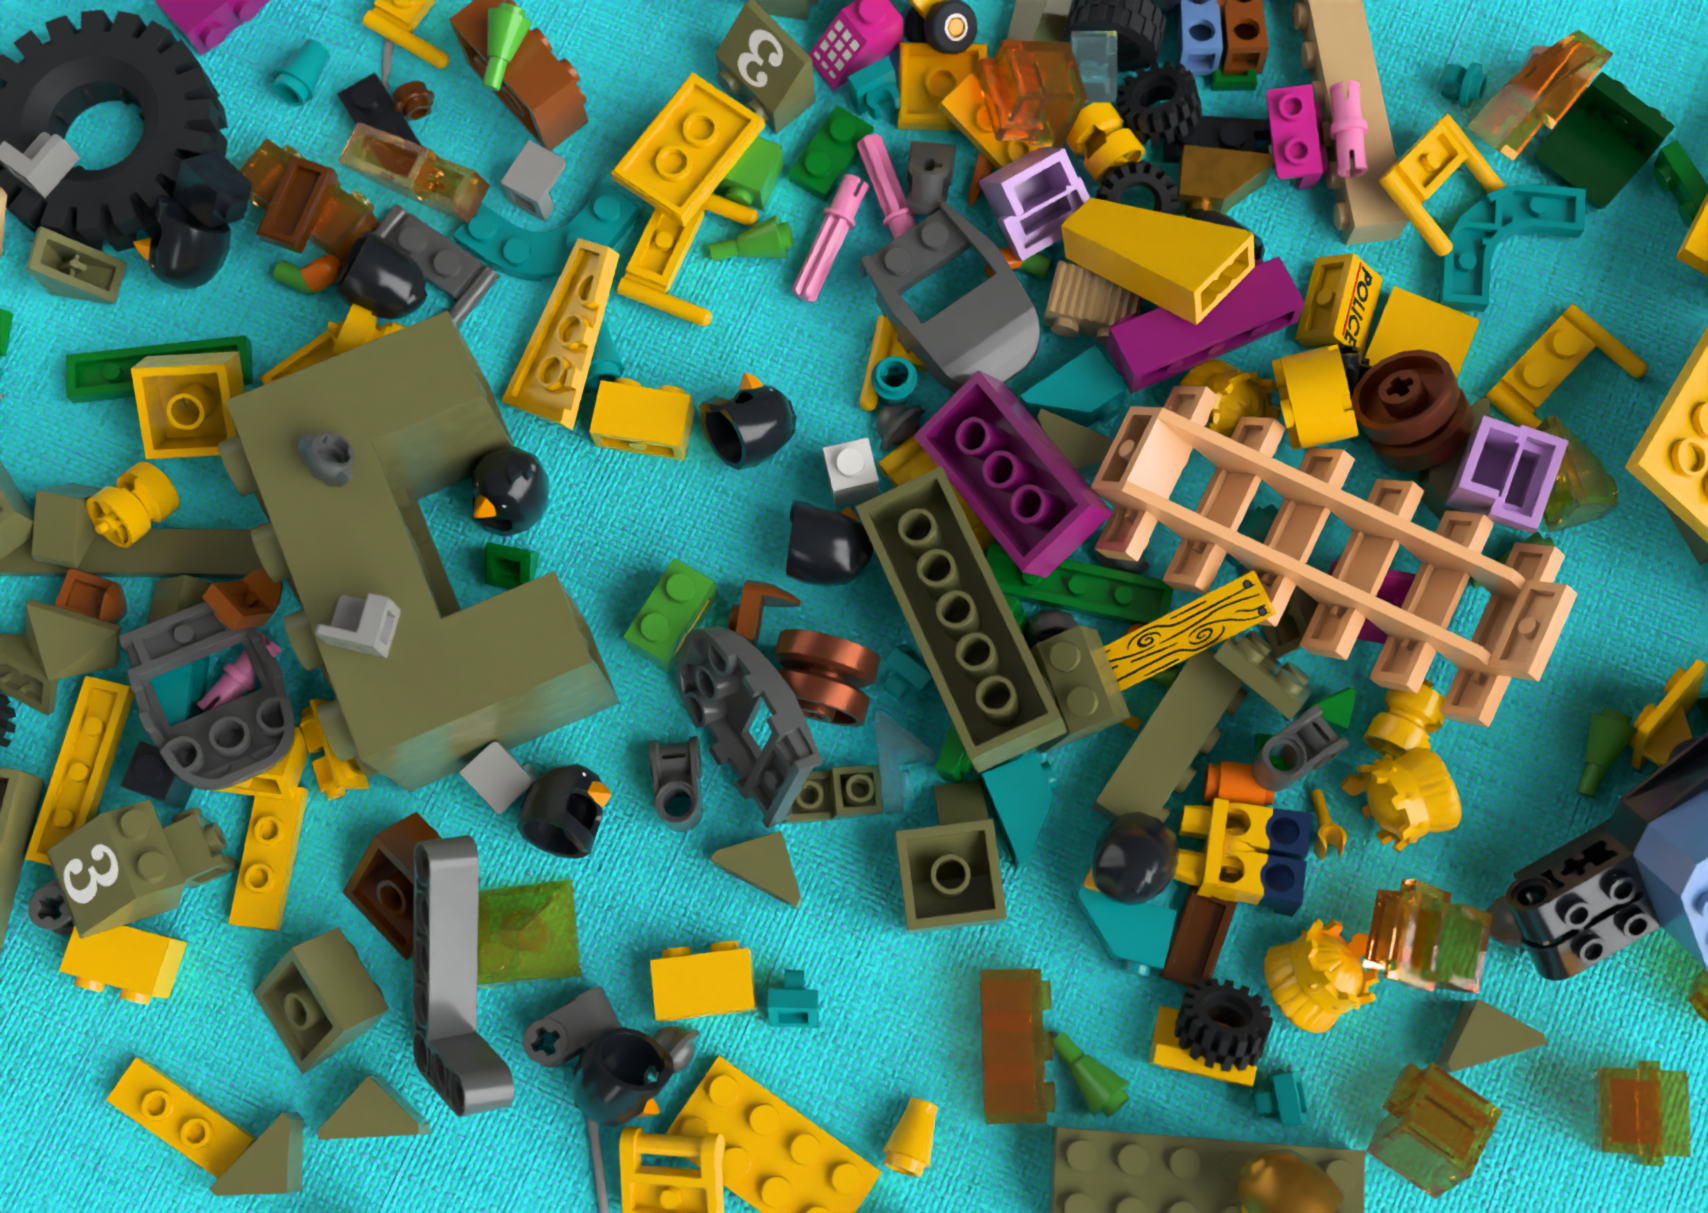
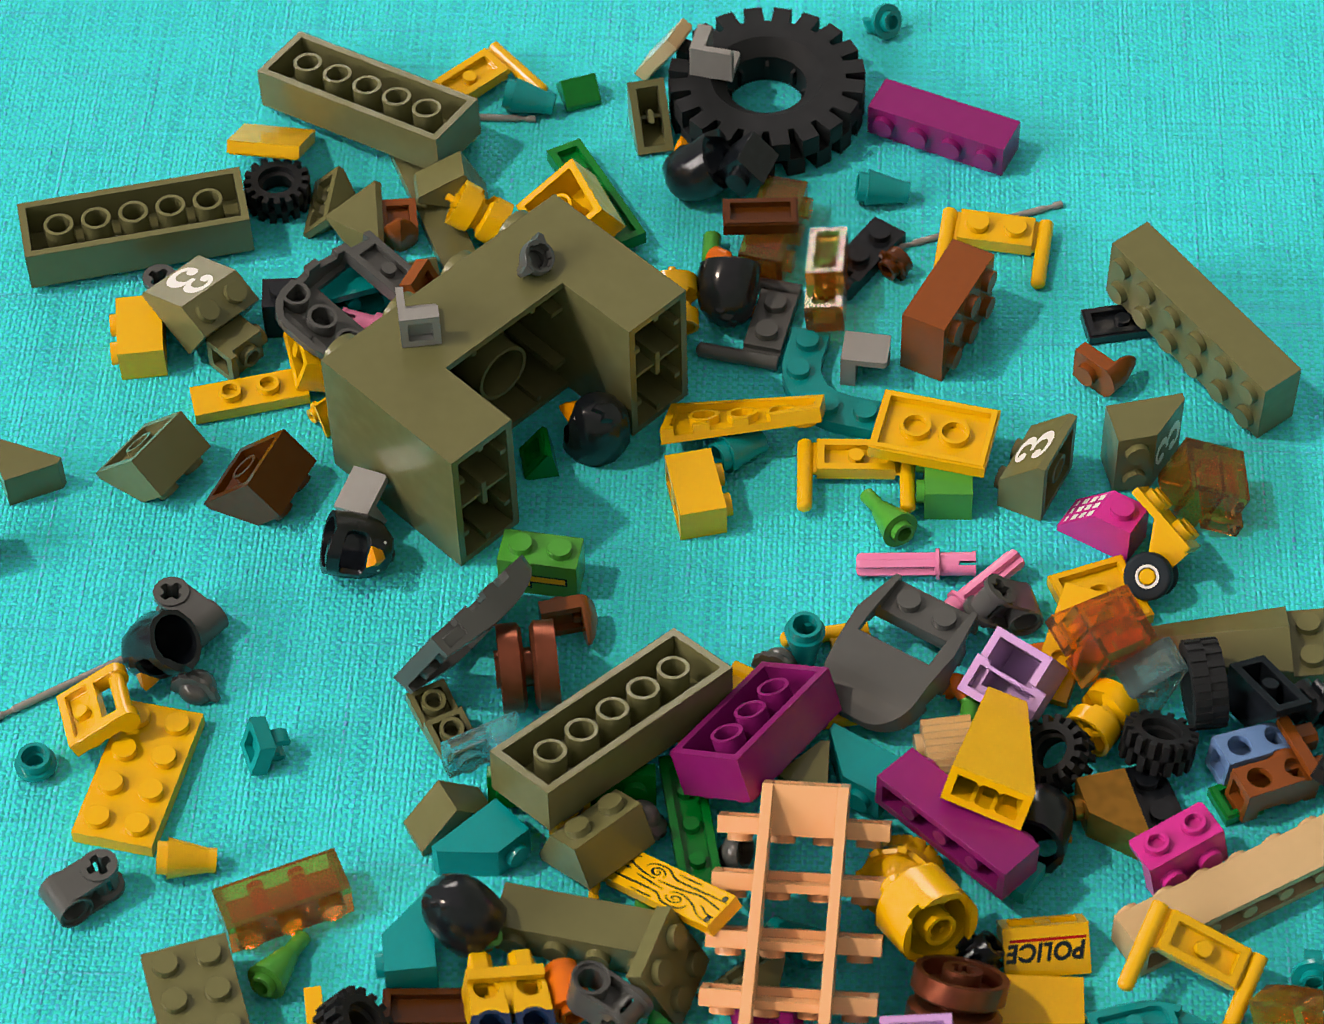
camera: 65 degrees right, 25 degrees down
(82, 764) = (273, 261): yellow plate -> none
(180, 1117) = (40, 407): yellow plate -> none
(373, 1111) = (82, 517): olive slope -> none
(445, 952) = (145, 537): dark grey beam -> none
(505, 33) = (952, 270): bright green cone -> none
(527, 935) = (247, 562): clear yellow slope -> none
(677, 773) = (407, 614): dark grey piece -> none
(703, 983) = (255, 682): yellow brick -> none
(749, 425) = (722, 560): black piece -> none
(764, 865) = (364, 694): olive slope -> none
(826, 545) = (636, 624): black piece -> none
(830, 154) = (994, 539): green plate -> none
(851, 472) = (718, 633): white brick -> none
(873, 87) = (1066, 546): teal tile -> none
(950, 876) = (400, 806): olive slope -> none
(1348, 129) = (1197, 873): bright pink pin -> none

